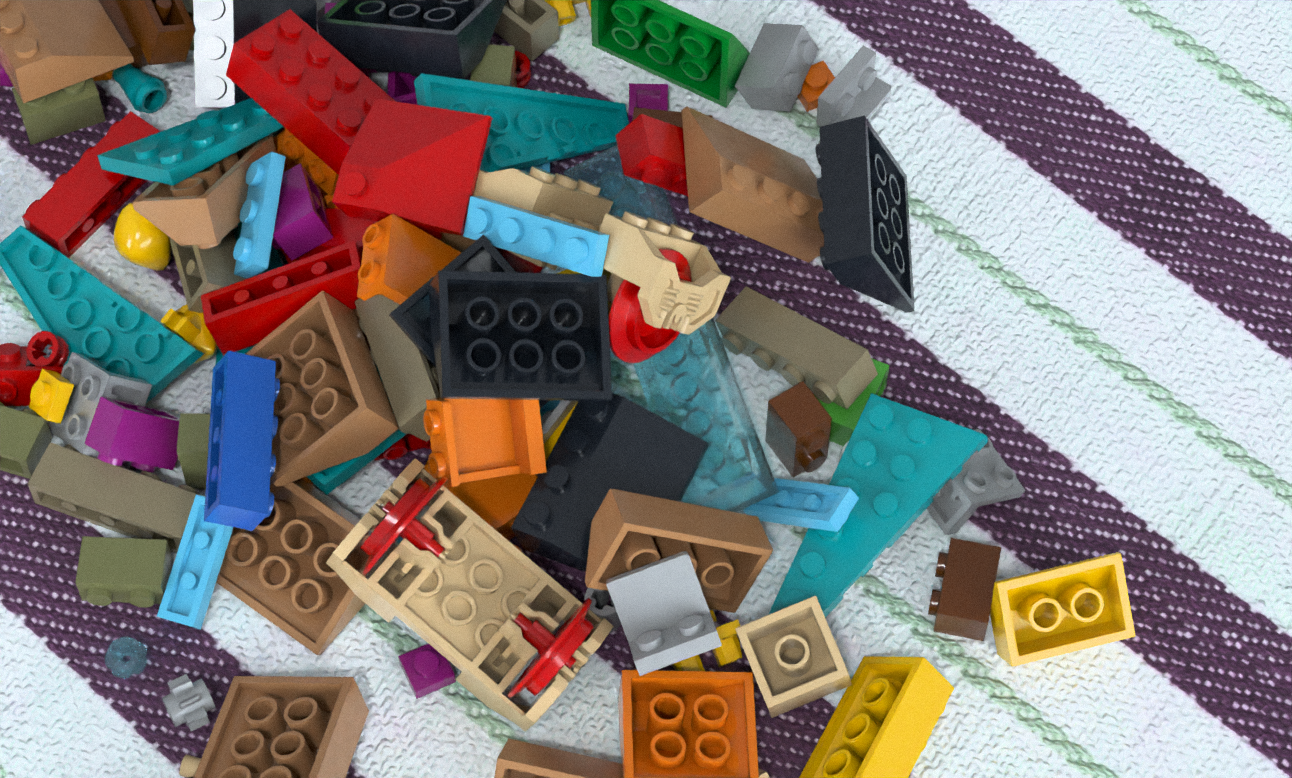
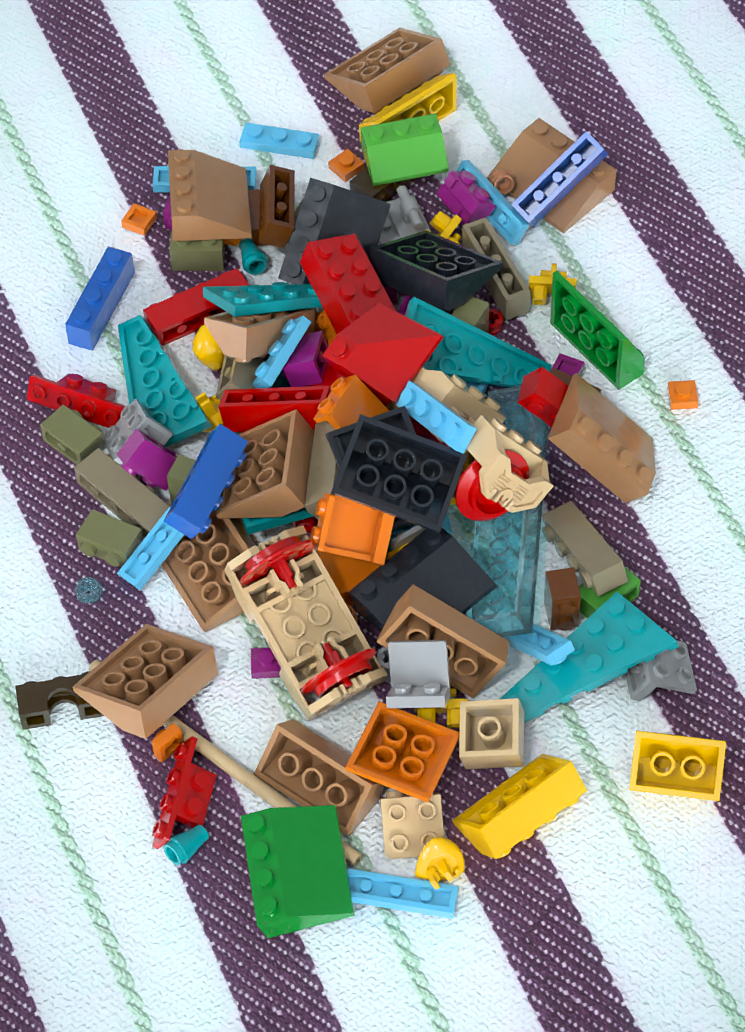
camera: 25 degrees right, 5 degrees down
(37, 344) = (120, 388): red bush -> none
(50, 395) = (110, 420): yellow plate -> none
(188, 702) = (111, 629): light grey gear -> none
(777, 67) = (659, 373): light grey brick -> none
(853, 91) = (701, 407): light grey bracket -> none
(864, 213) = (669, 482): black slope -> none
(966, 589) = (617, 740): reddish brown brick -> none

